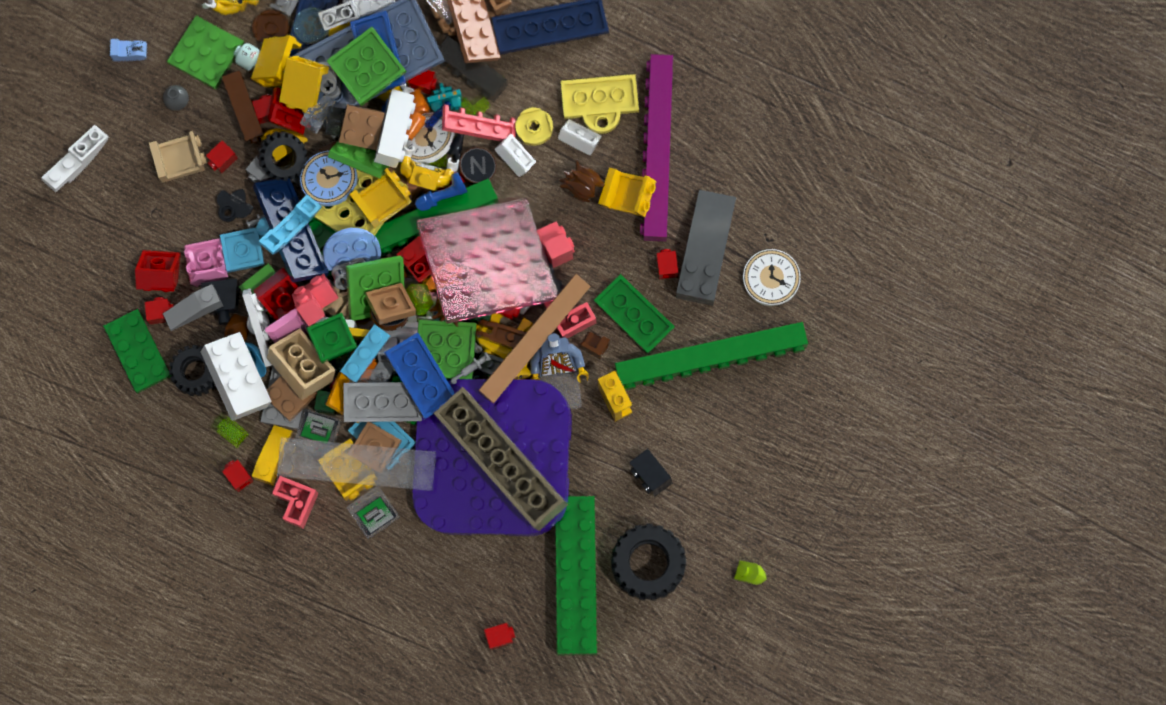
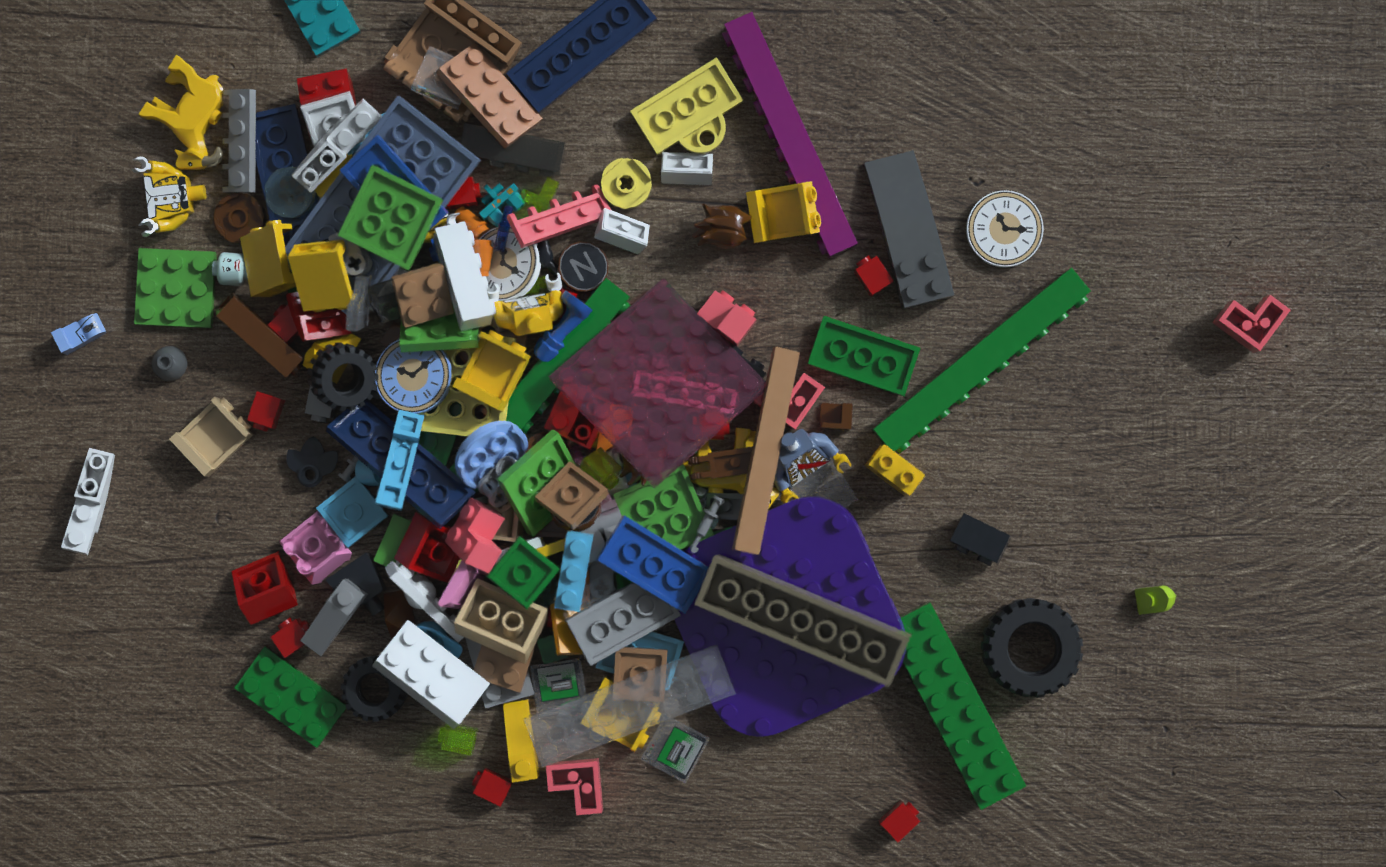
camera: 25 degrees left, 10 degrees up
(906, 422) = (1252, 328): none -> coral brick

